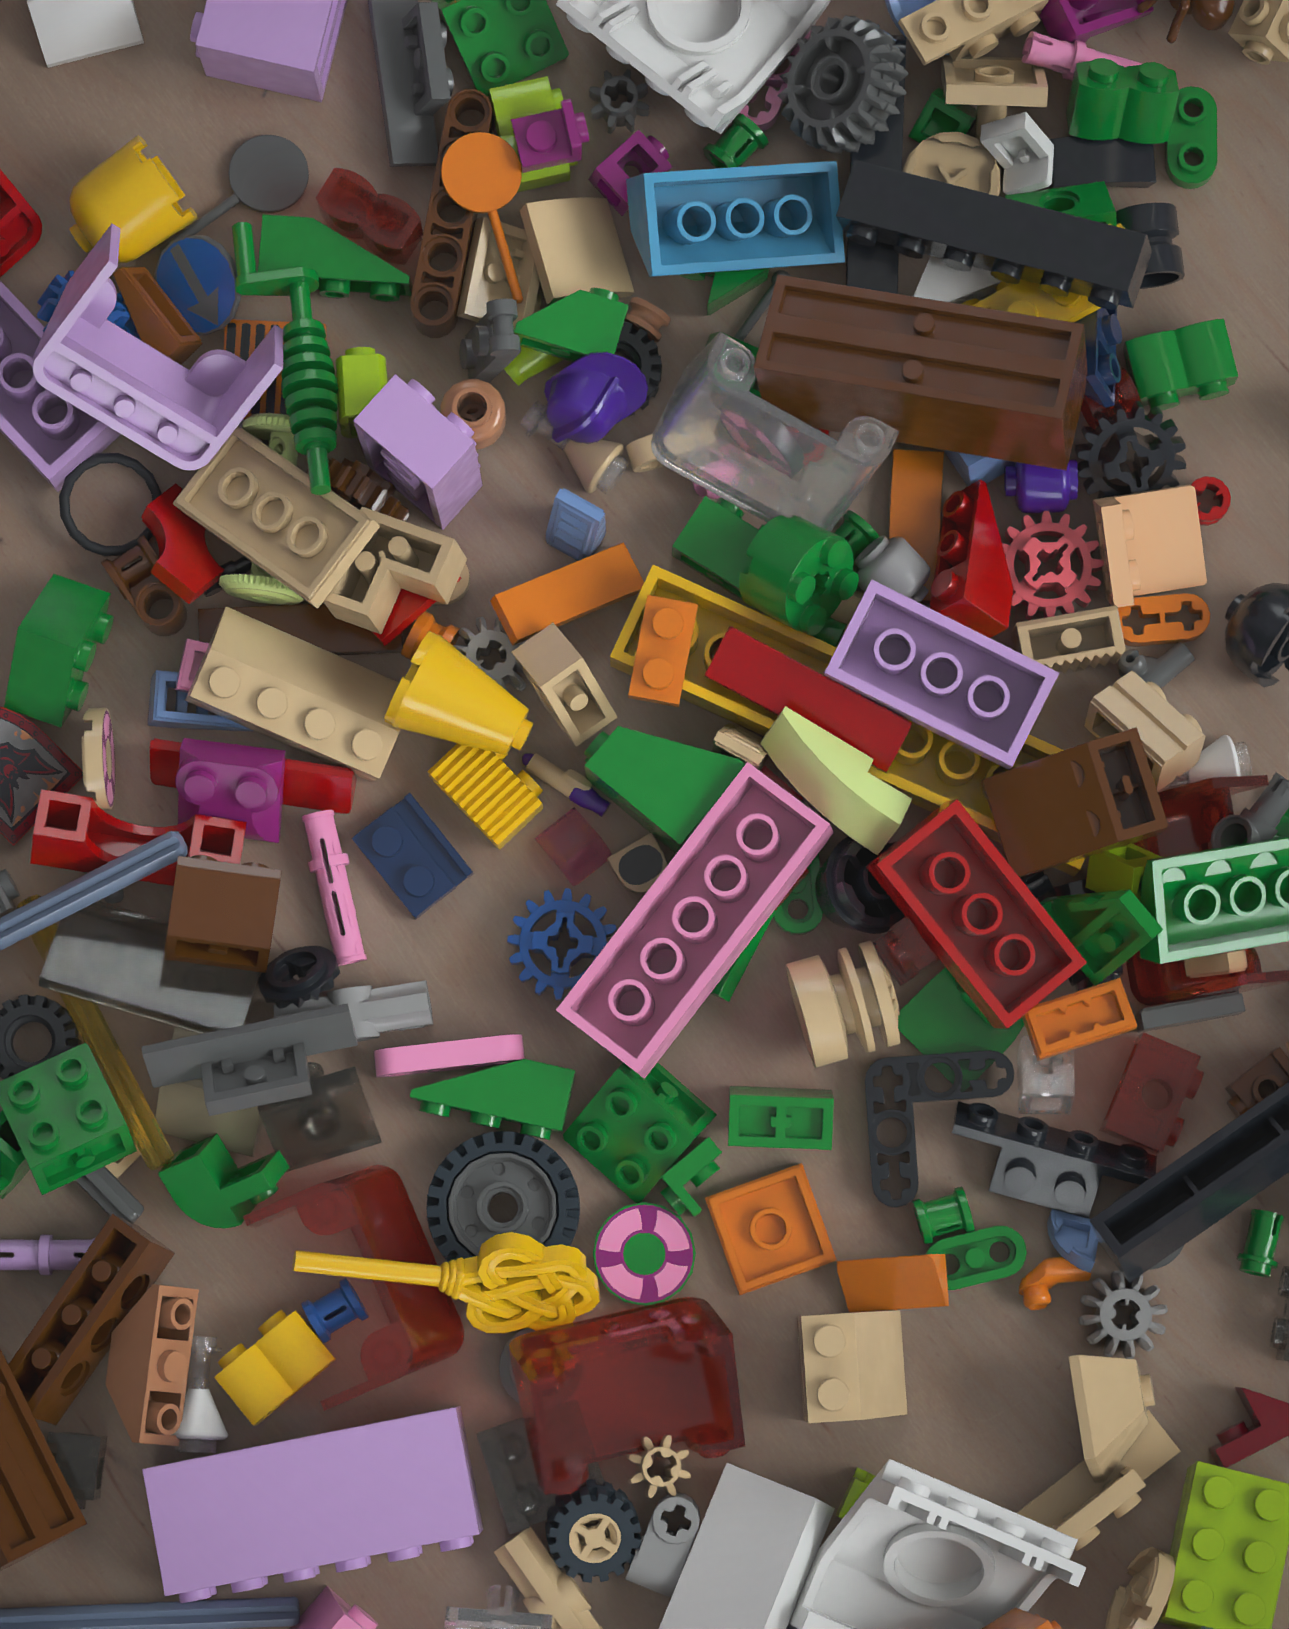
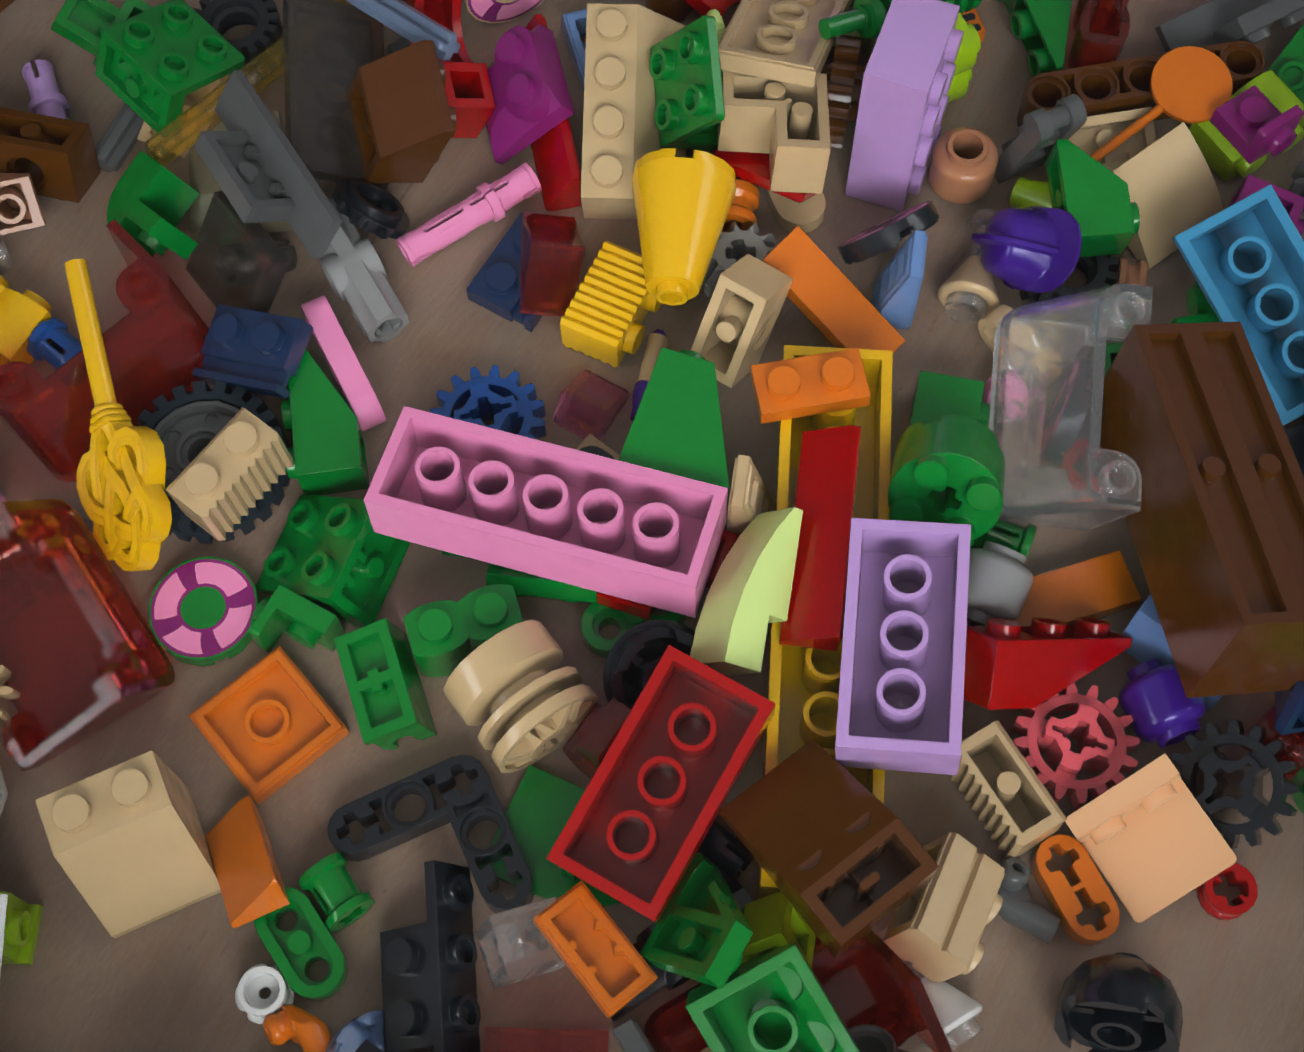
camera: 70 degrees right, 15 degrees down
(315, 635) = (688, 87): none -> green bracket
(418, 1132) = (253, 350): none -> dark blue plate
(425, 829) = (549, 263): none -> clear red slope
(518, 513) = (888, 233): none -> black tile
(550, 1184) = (231, 474): none -> tan brick
(758, 1016) = (449, 630): none -> green brick
(988, 1301) = (249, 988): none -> white plate

